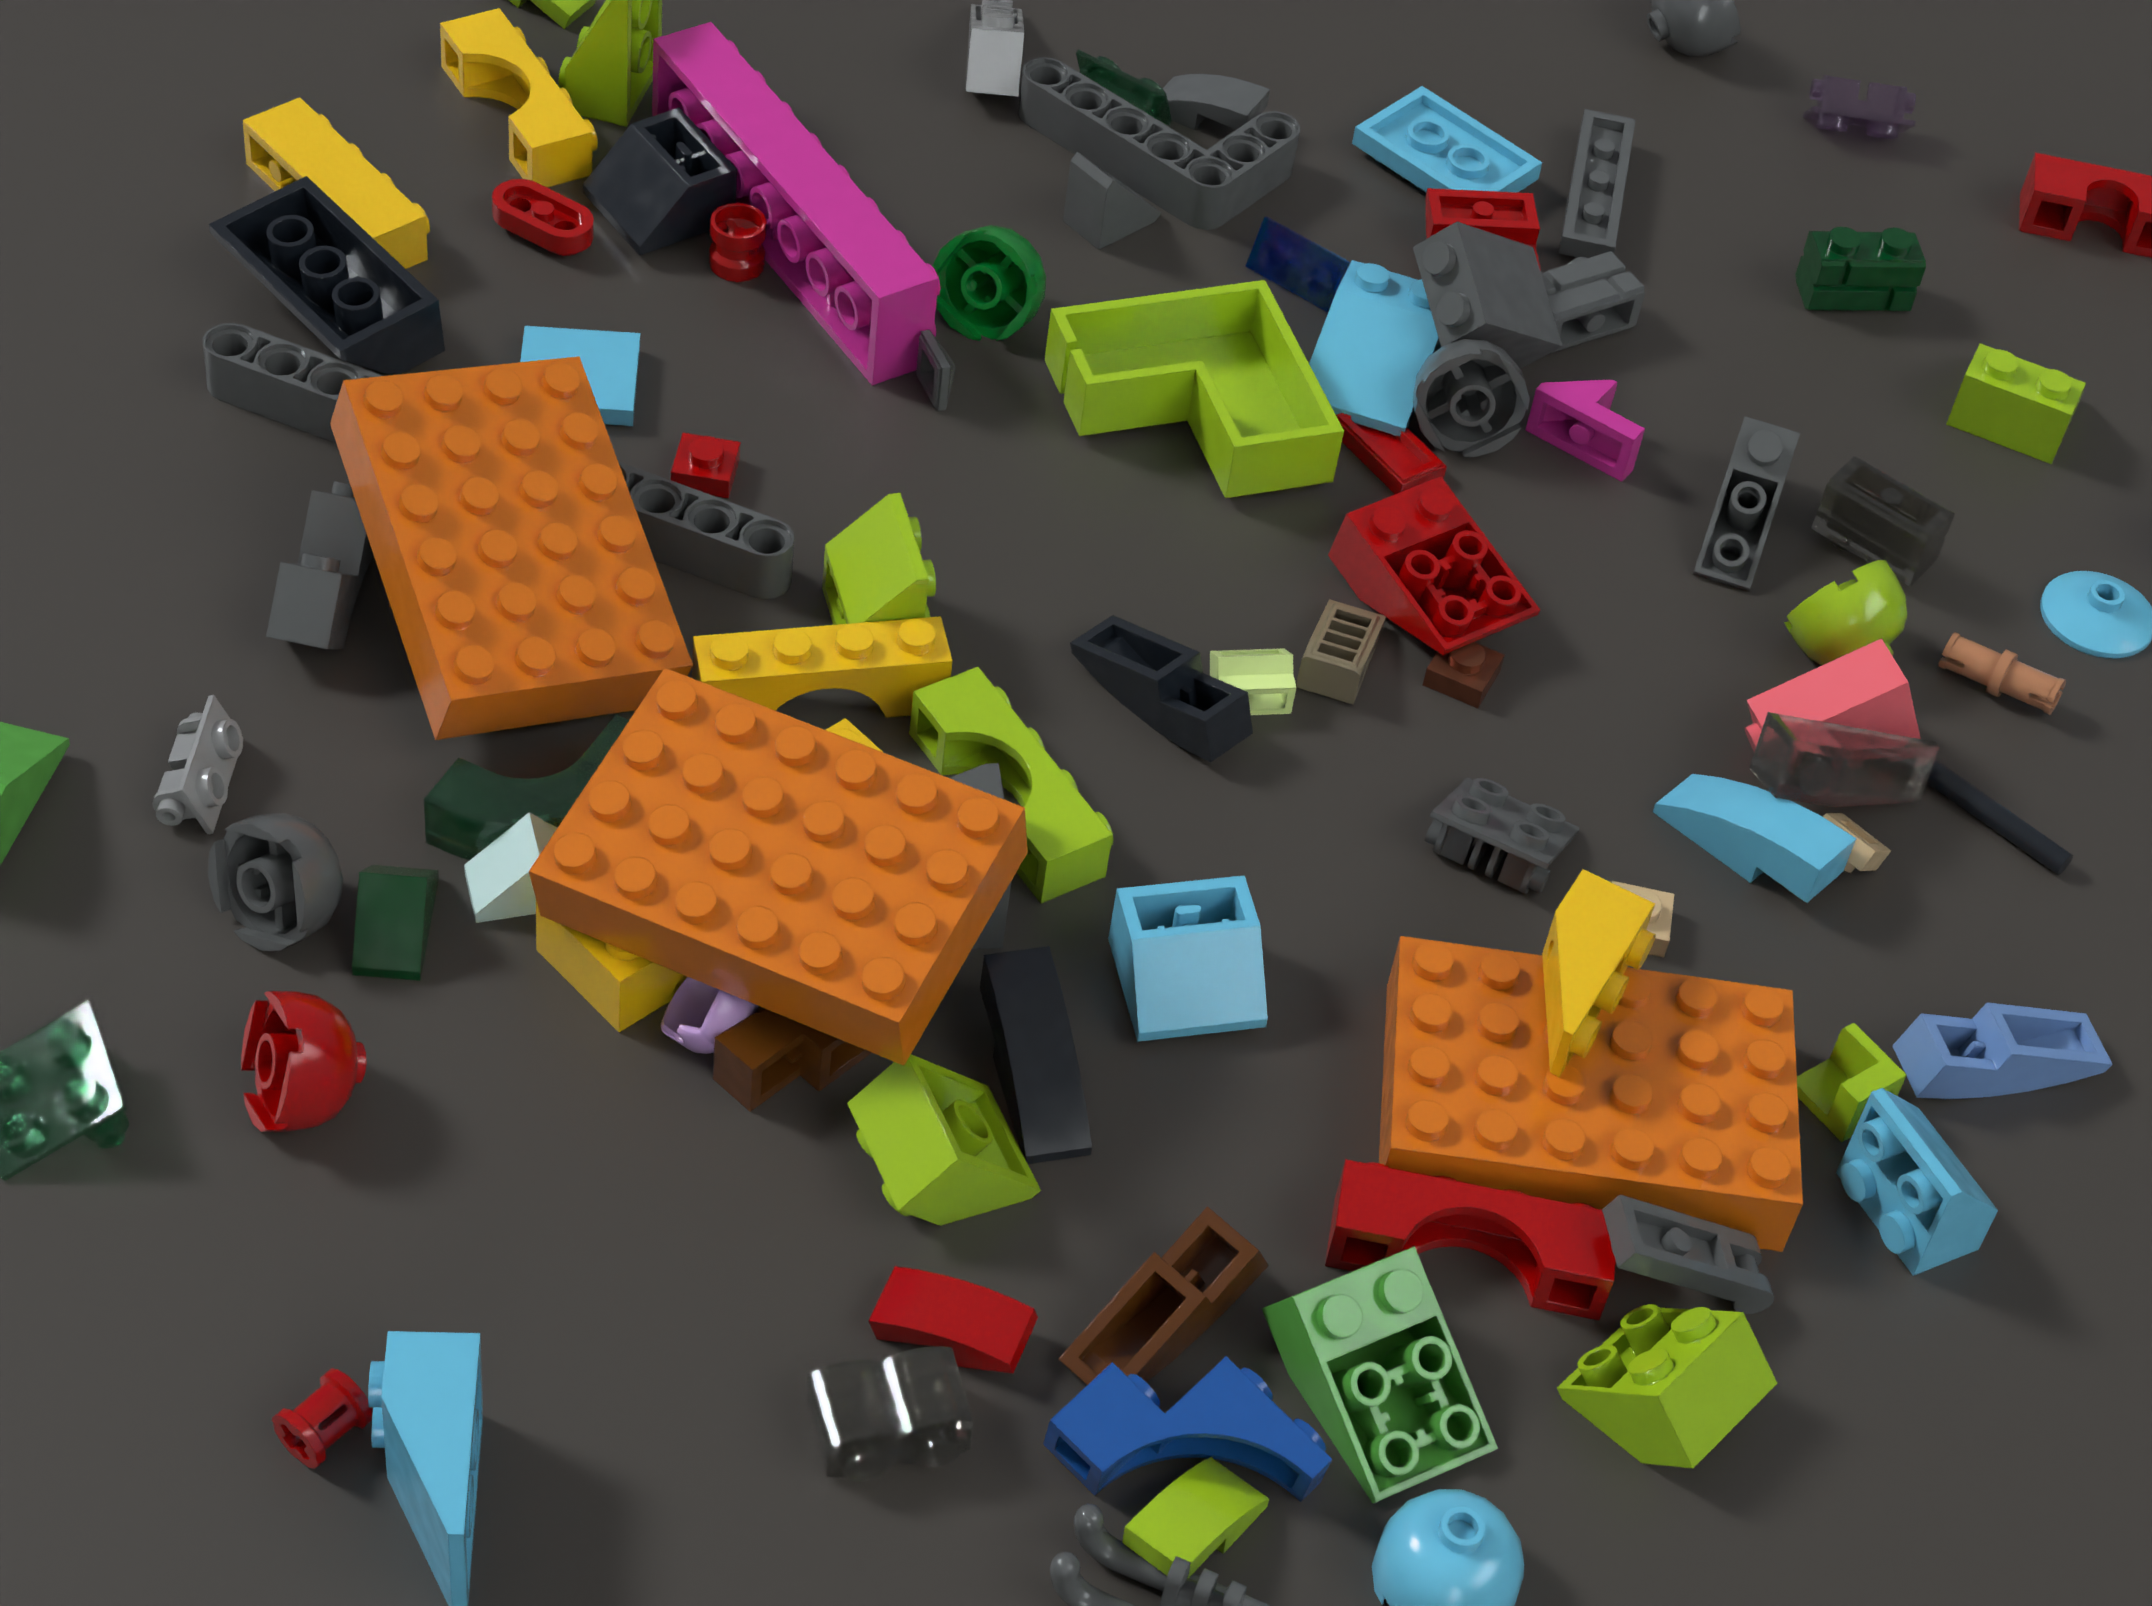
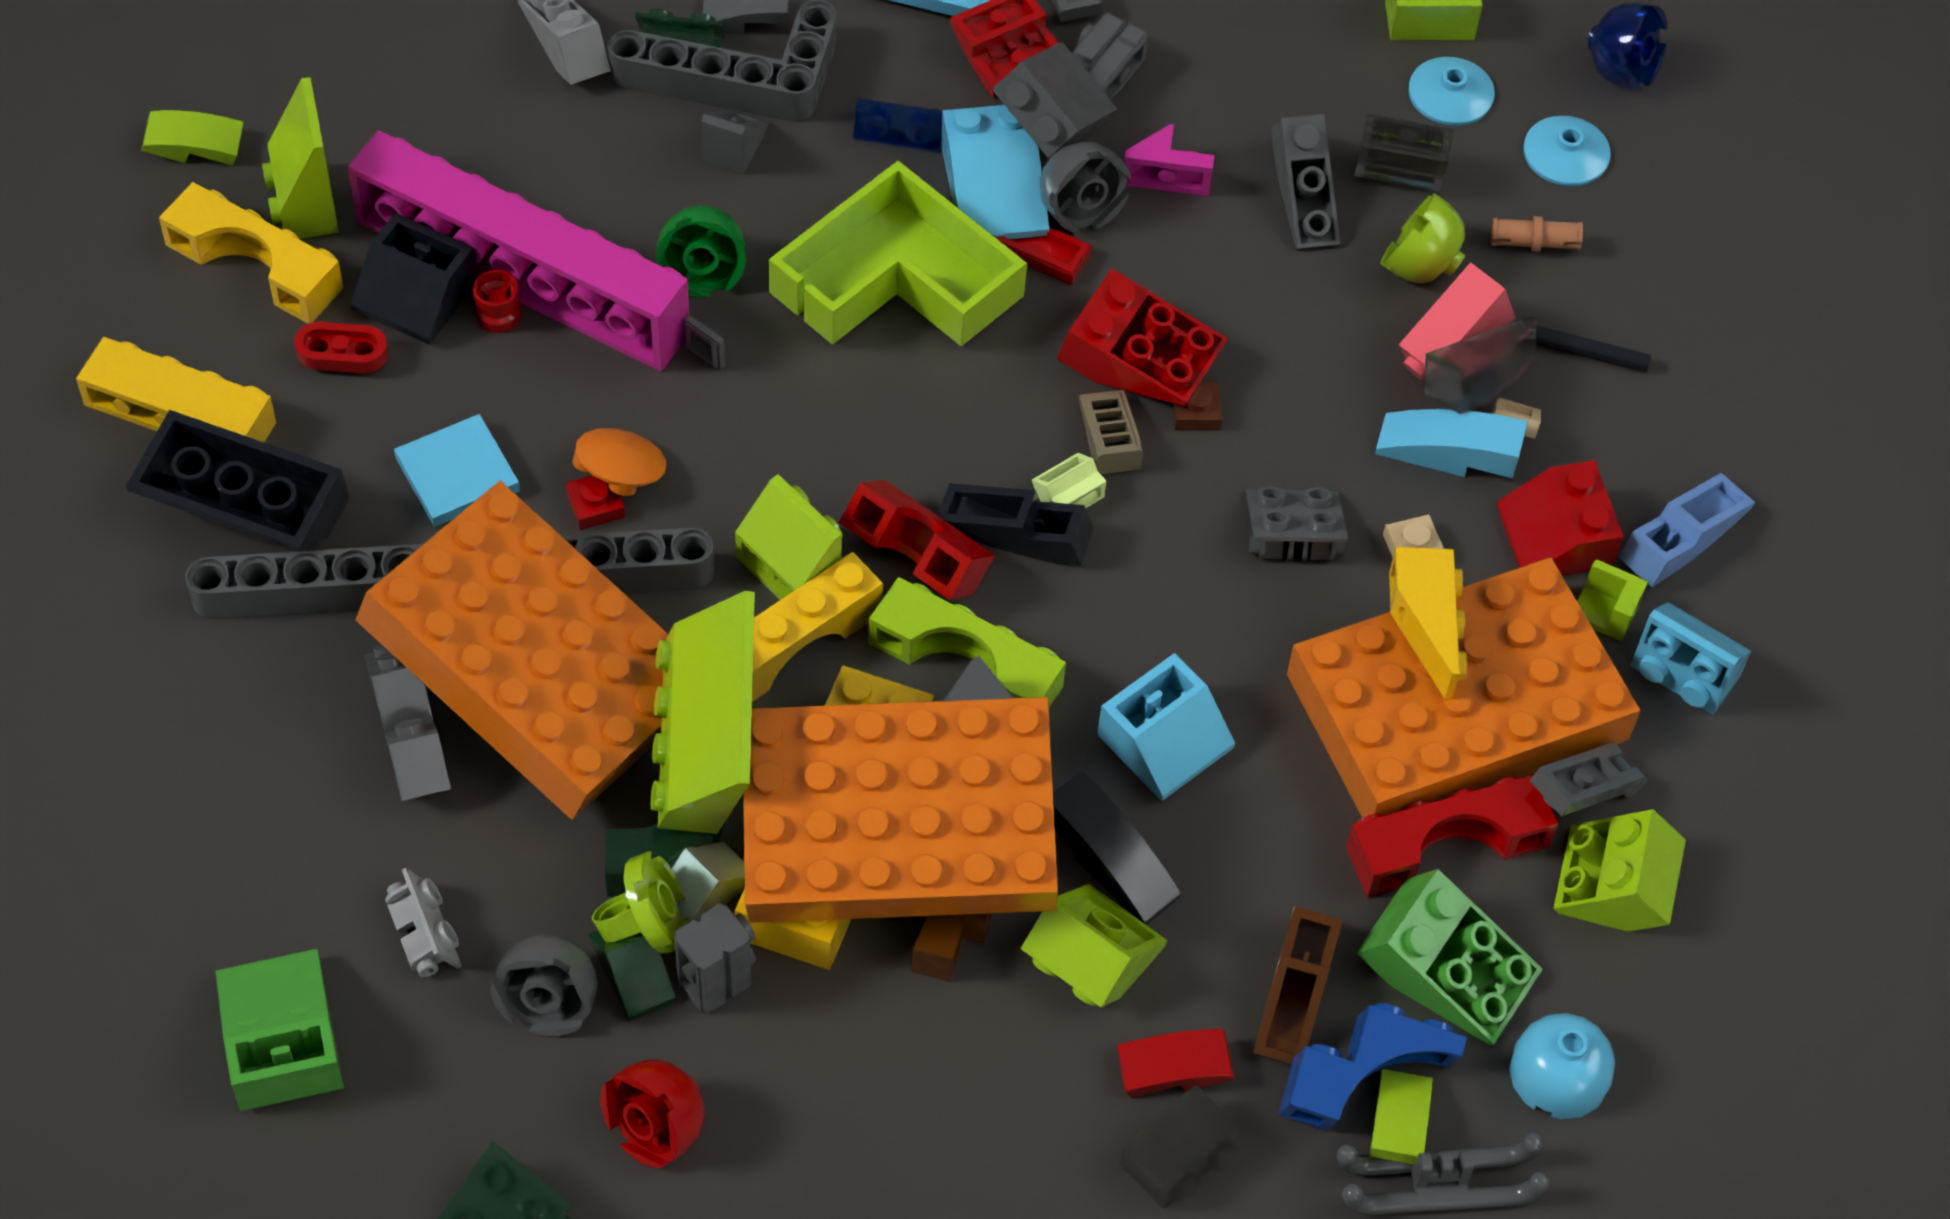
camera: 25 degrees left, 10 degrees up
(445, 847) = (646, 906): none -> lime tile
(480, 938) = (714, 957): none -> dark grey brick
(660, 627) = (704, 716): none -> lime slope
(701, 1014) = (886, 937): lavender hair -> none
(757, 434) = (619, 459): none -> orange dish
(1047, 667) = (894, 520): none -> red arch
(1843, 968) = (1563, 518): none -> red slope
(1990, 500) = (1451, 91): none -> medium azure dish

